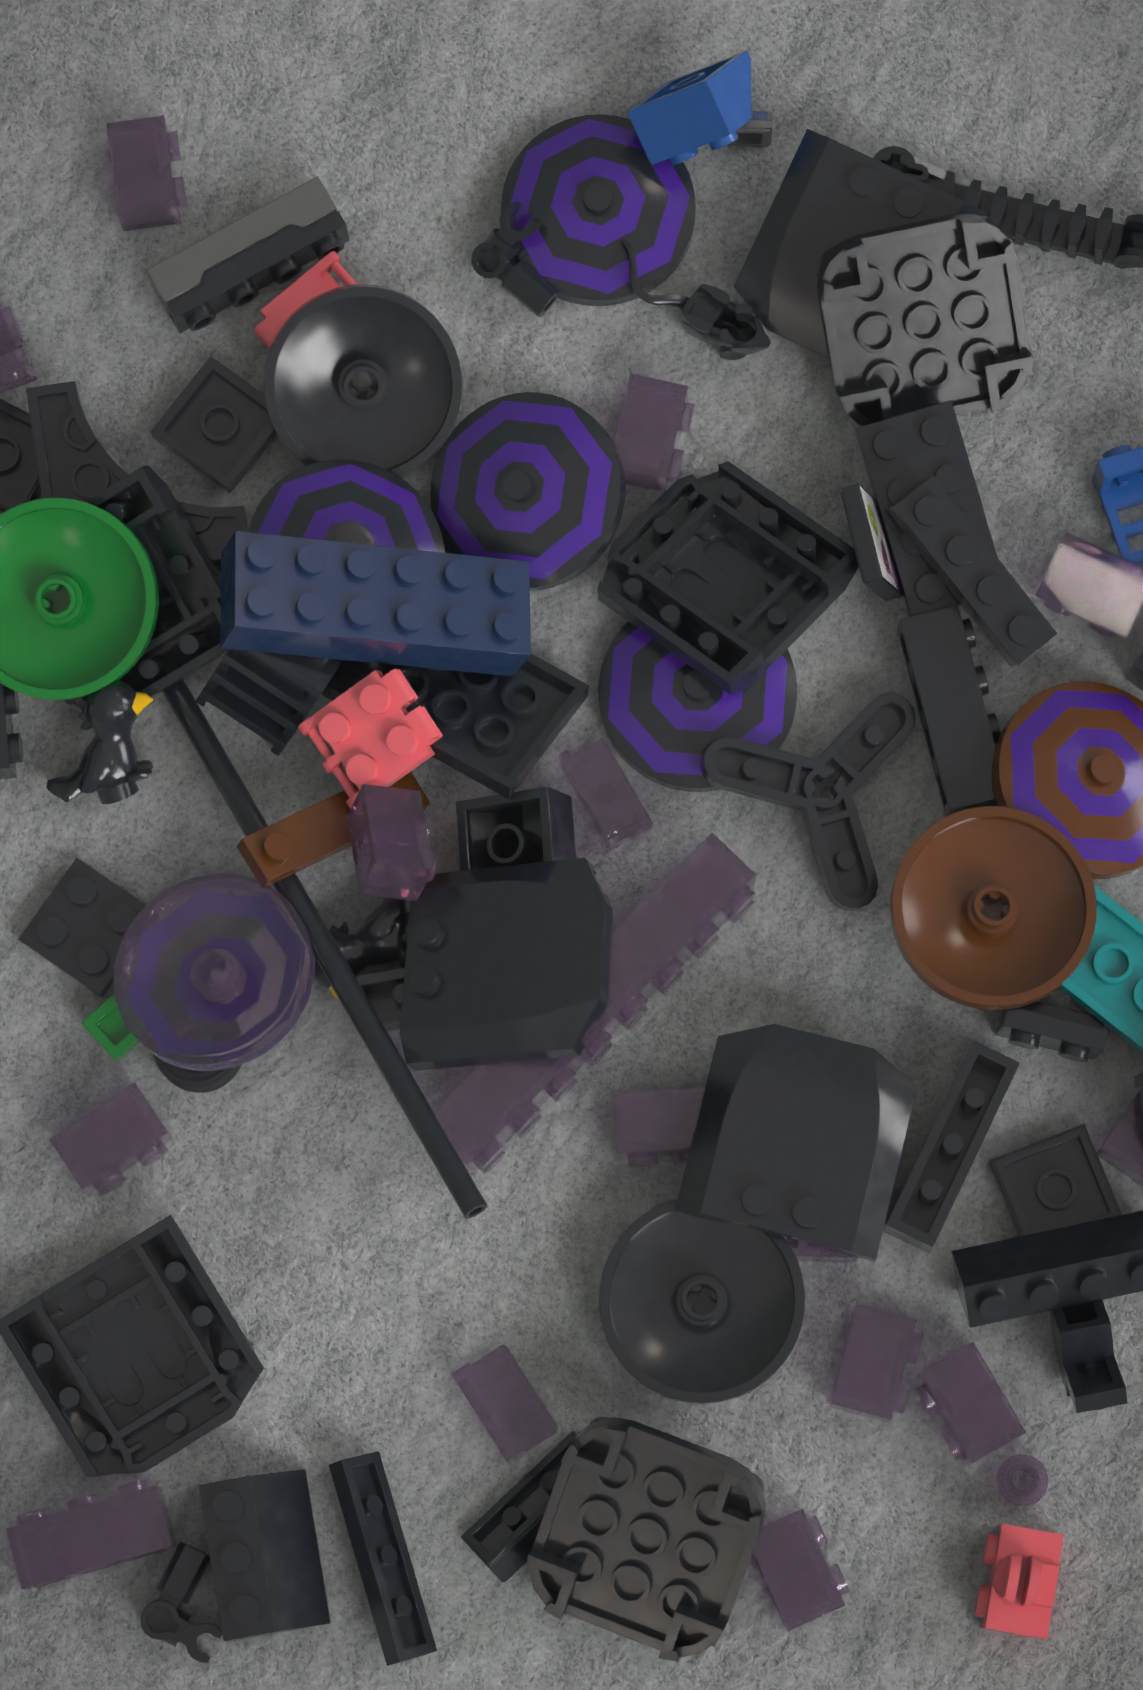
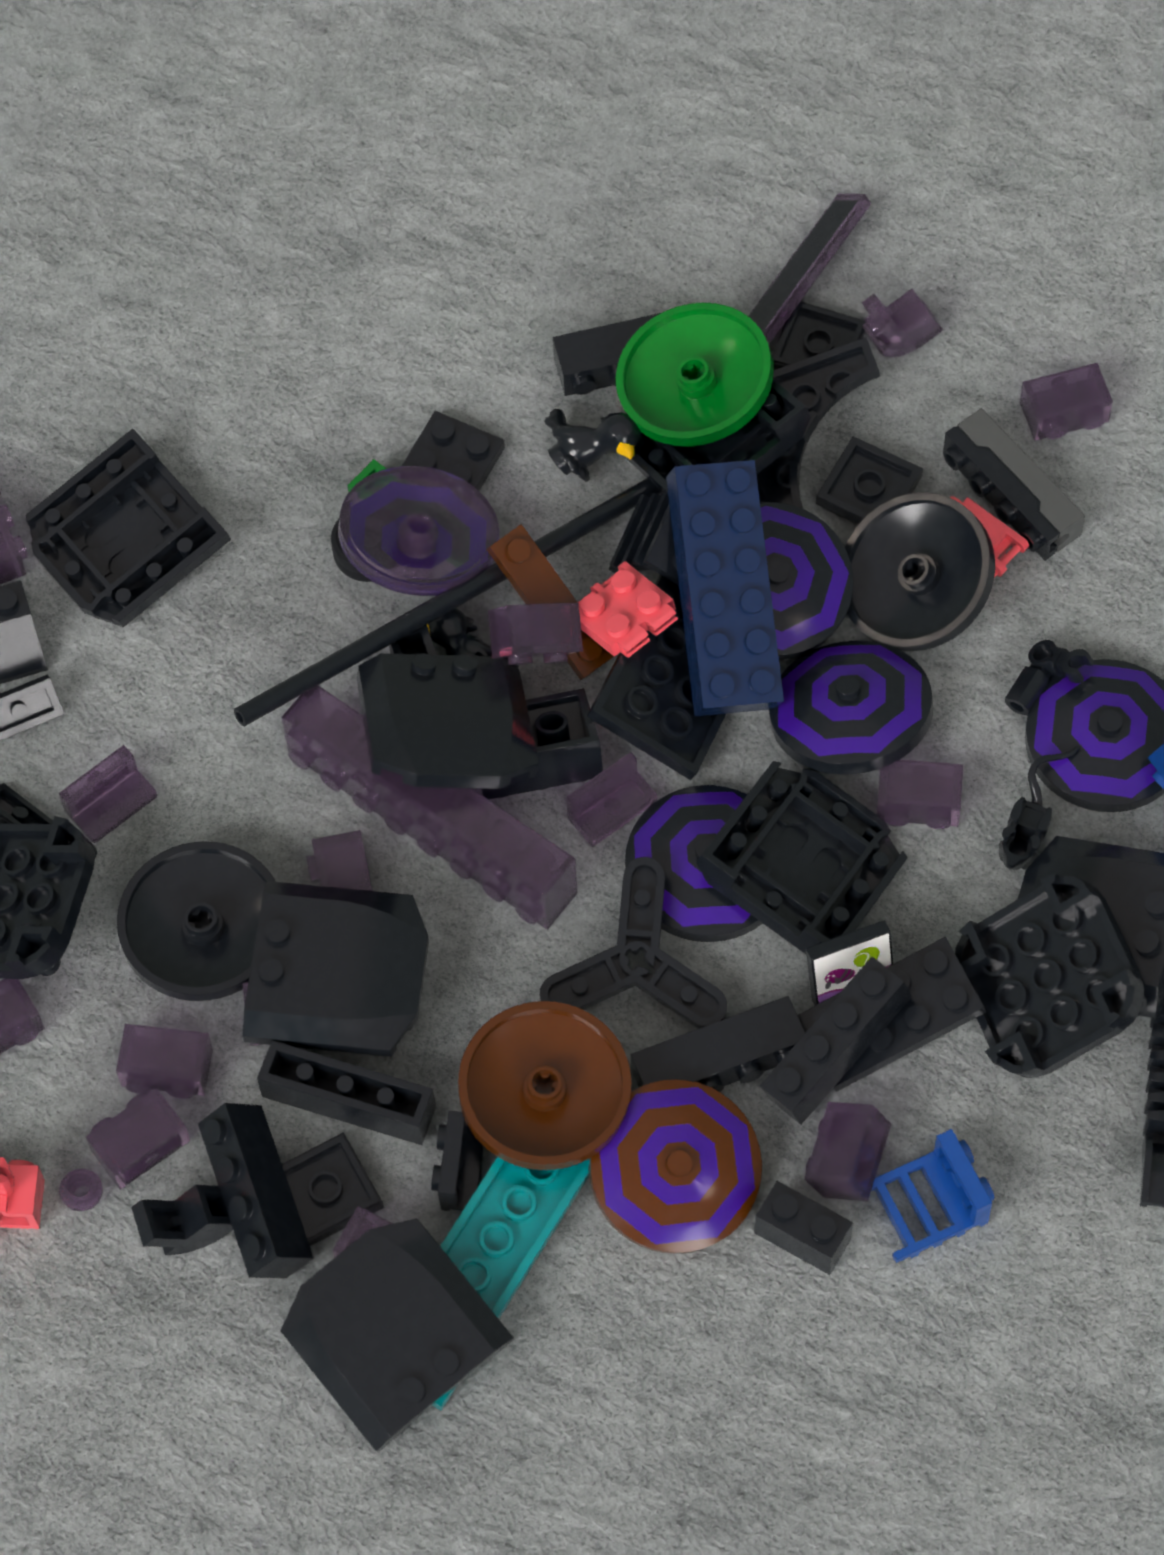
camera: 80 degrees right, 15 degrees down
(112, 1141) = (285, 494): clear purple brick -> none

